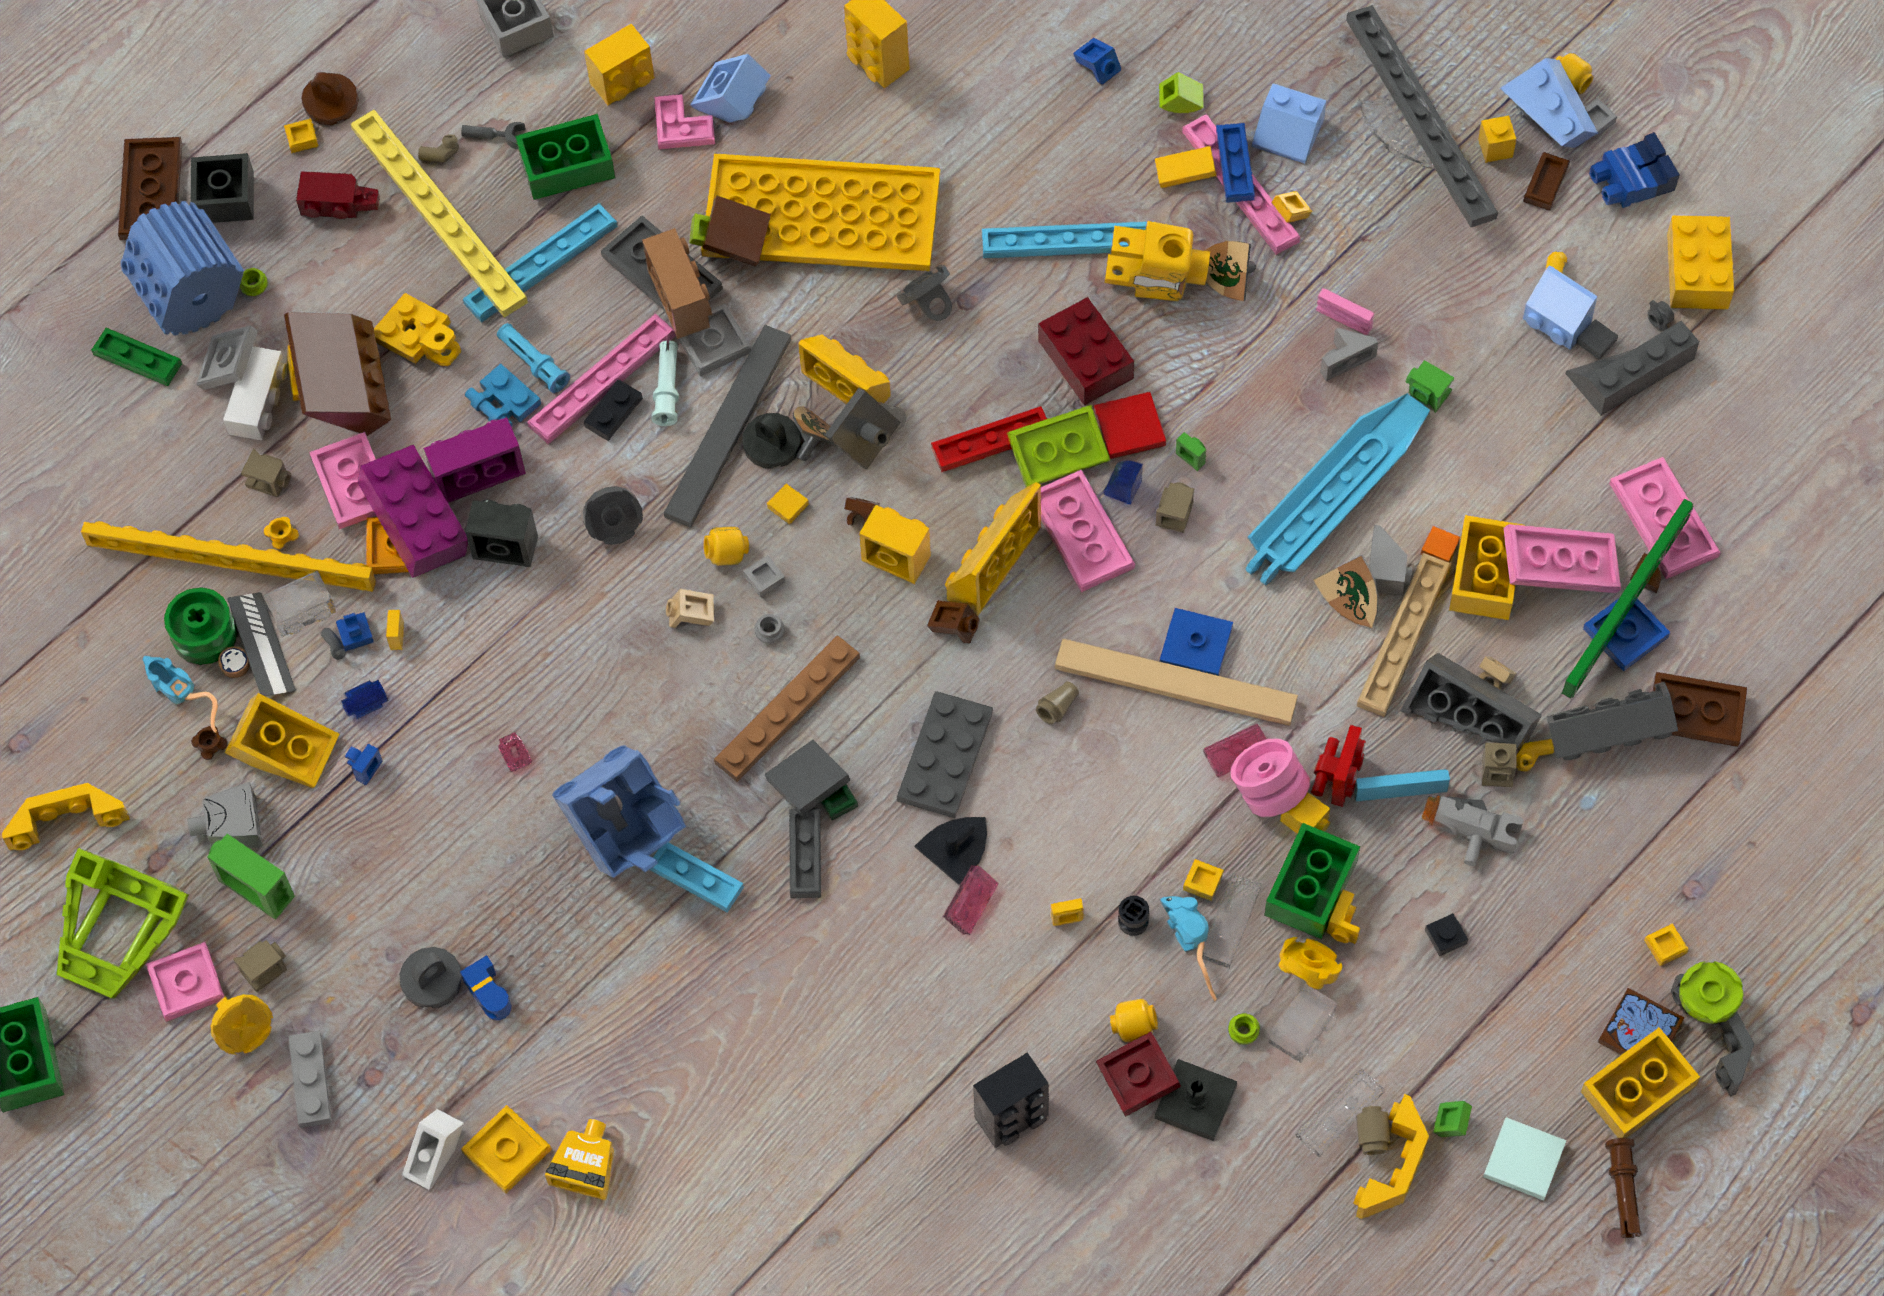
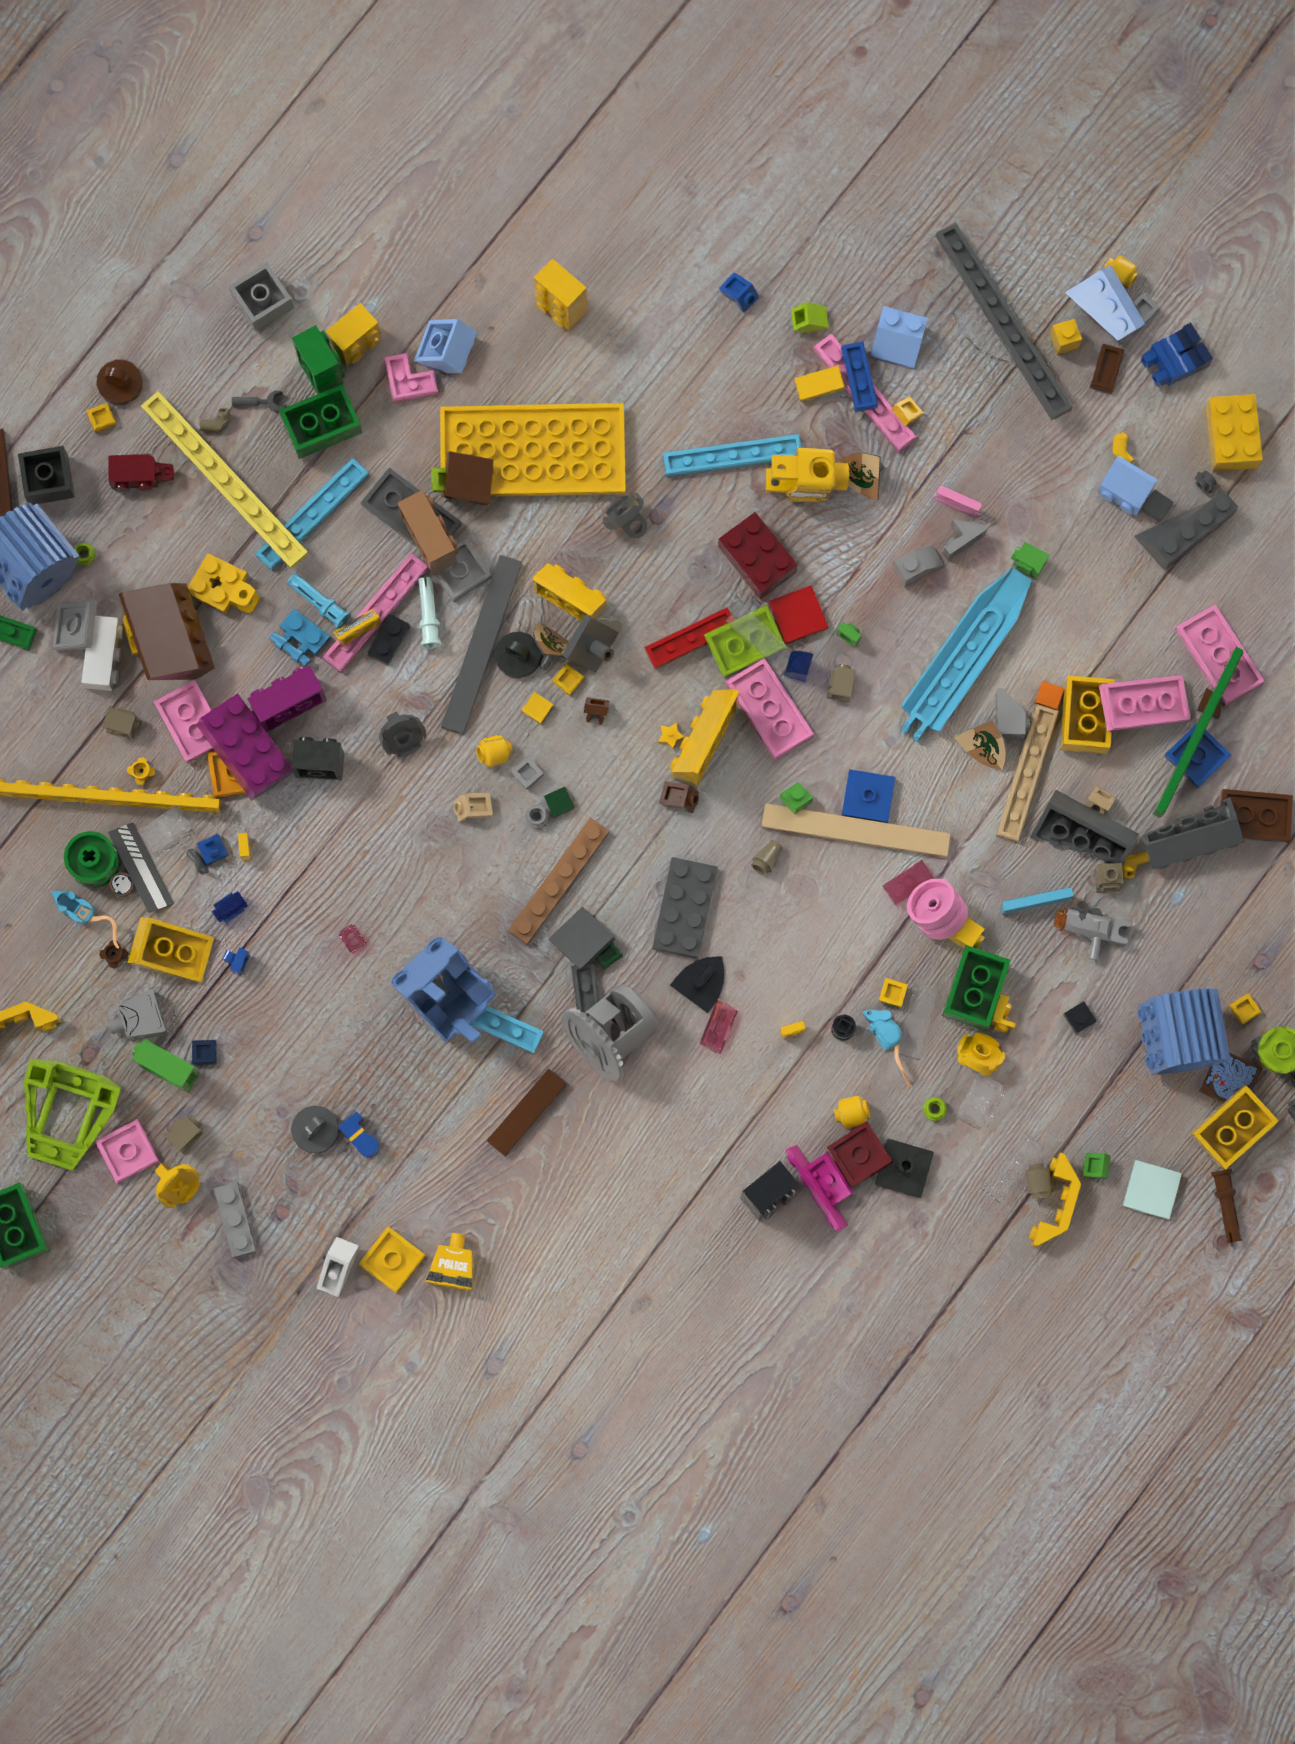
camera: 10 degrees left, 15 degrees up
(304, 870) = (204, 1052): none -> dark blue tile
(570, 80) = (318, 360): none -> green brick
(576, 390) = (357, 627): none -> yellow slope
(707, 982) = (526, 1112): none -> reddish brown tile
(800, 615) = (559, 802): none -> dark green tile
(803, 882) = (592, 1030): none -> light grey piece
(831, 475) = (568, 679): none -> yellow tile
(895, 543) = (627, 738): yellow brick -> none
(951, 550) = (670, 735): none -> yellow piece
(1076, 439) = (758, 635): none -> clear tile
(1088, 1104) = (825, 1183): none -> dark pink bracket
(1103, 635) = (796, 798): none -> bright green plate
(1285, 379) = (917, 565): none -> light grey slope
(1340, 770) = (987, 893): red plate -> none
(1580, 952) = (1183, 1031): none -> medium blue piece

